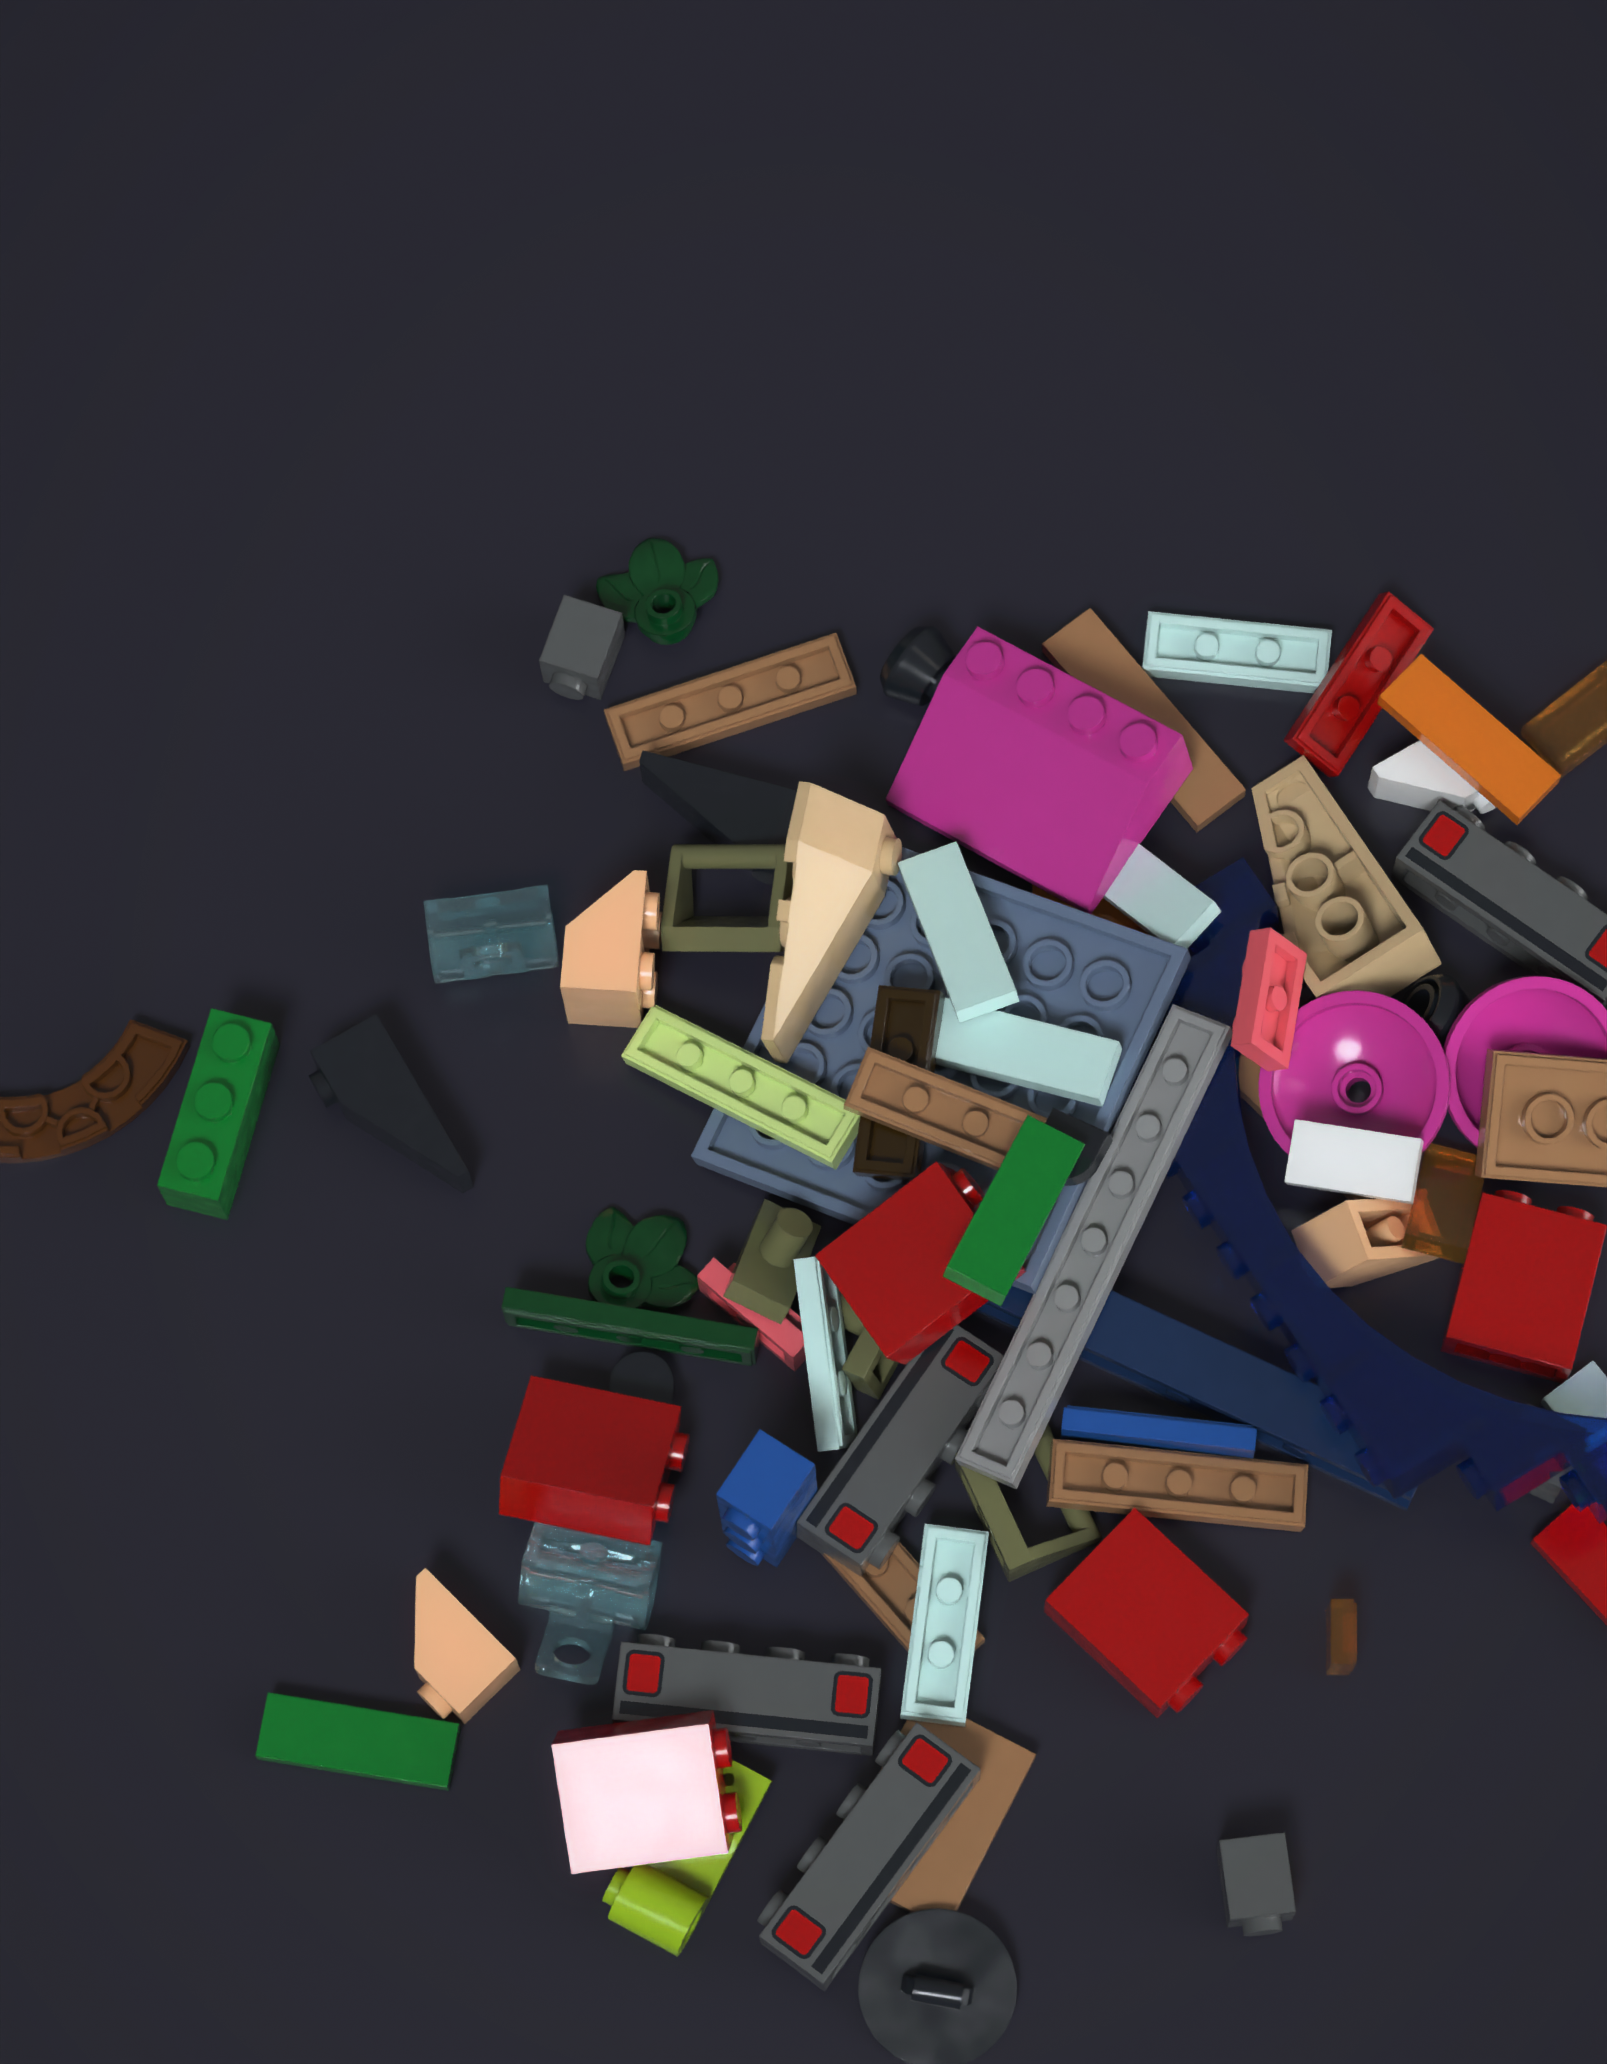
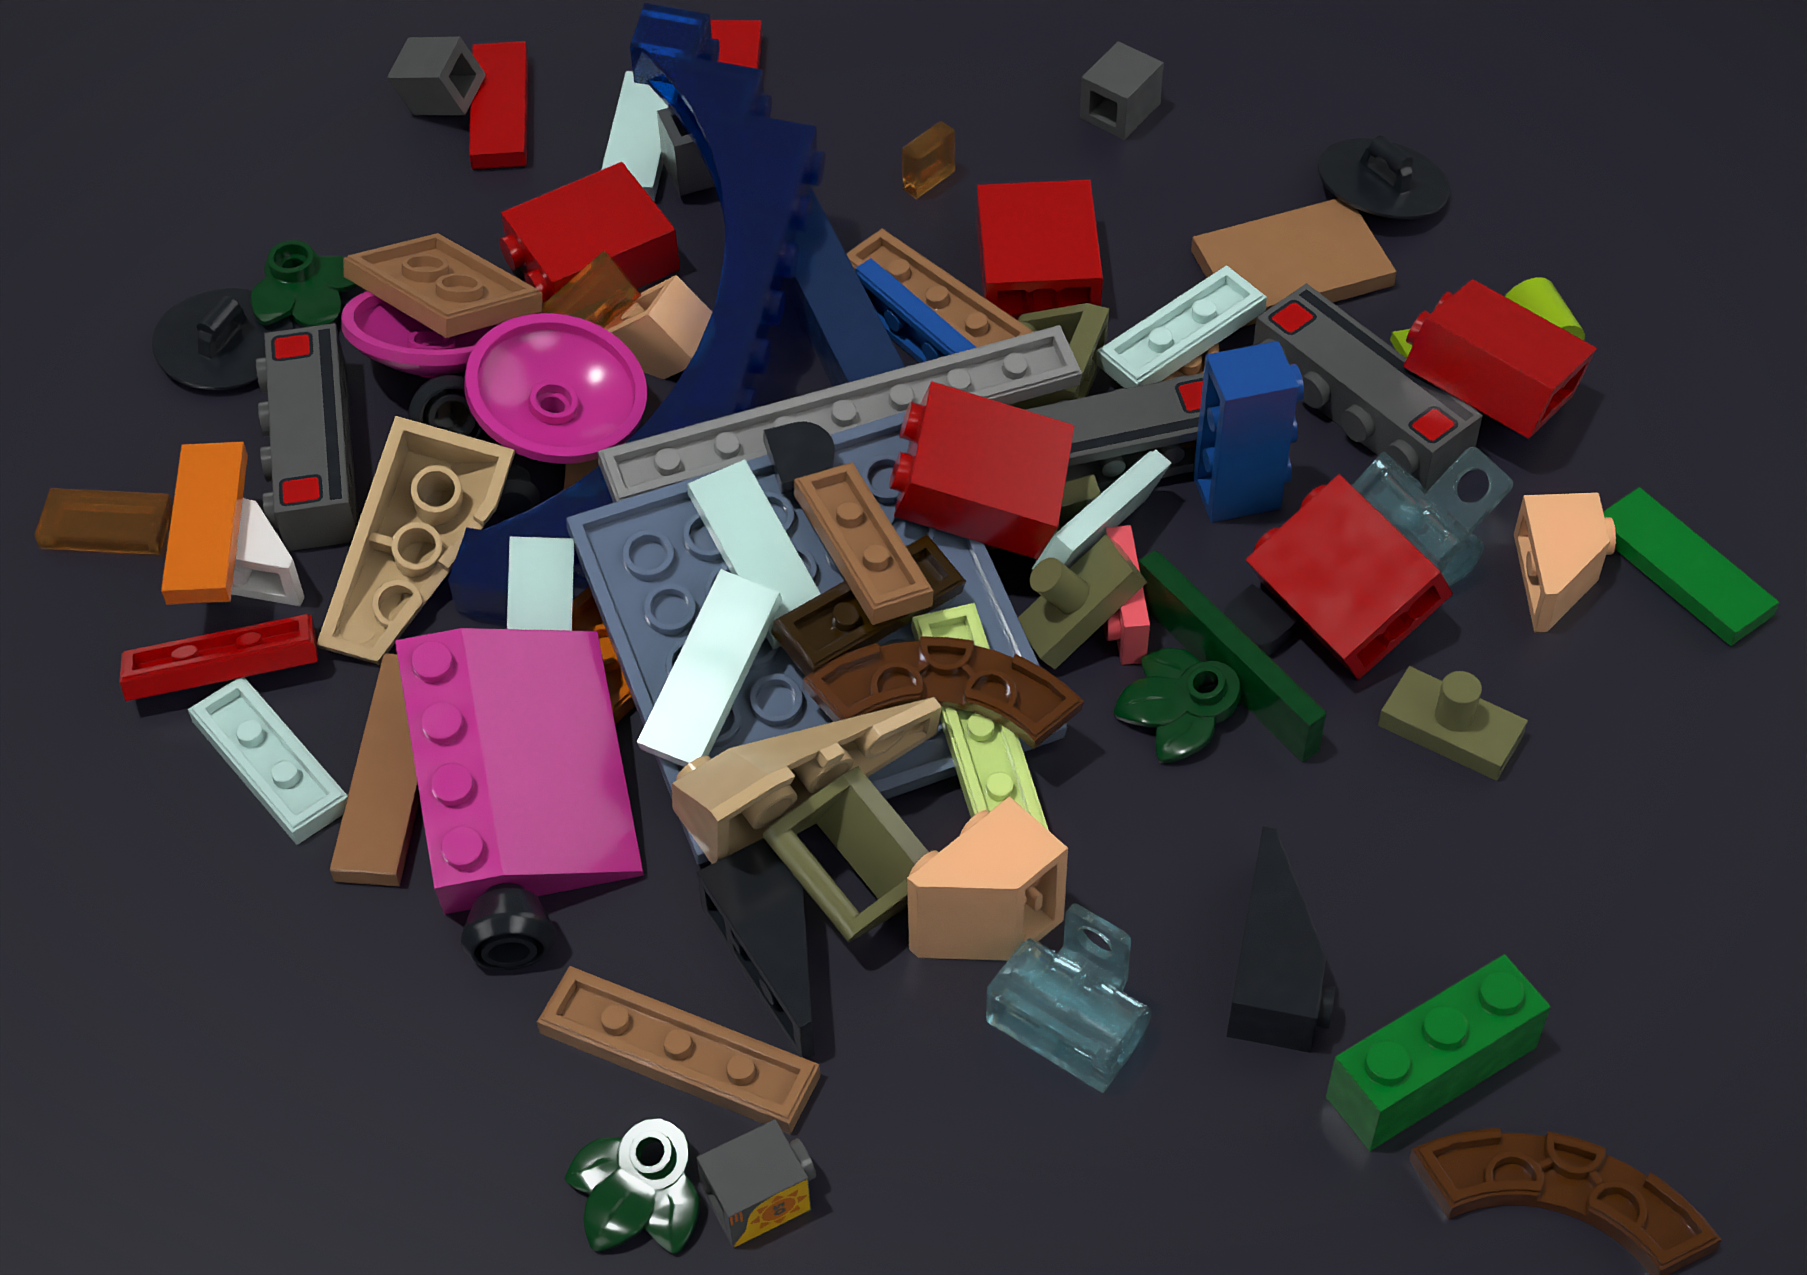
camera: 140 degrees left, 20 degrees down
(423, 1425) = (1453, 720): none -> olive tile
(795, 1085) = (956, 674): none -> reddish brown tile
(868, 1856) = (1368, 235): dark grey brick -> none
(1014, 1210) = (891, 405): green tile -> none
(1268, 999) = (574, 446): coral plate -> none
(1354, 1161) = (613, 341): white tile -> none

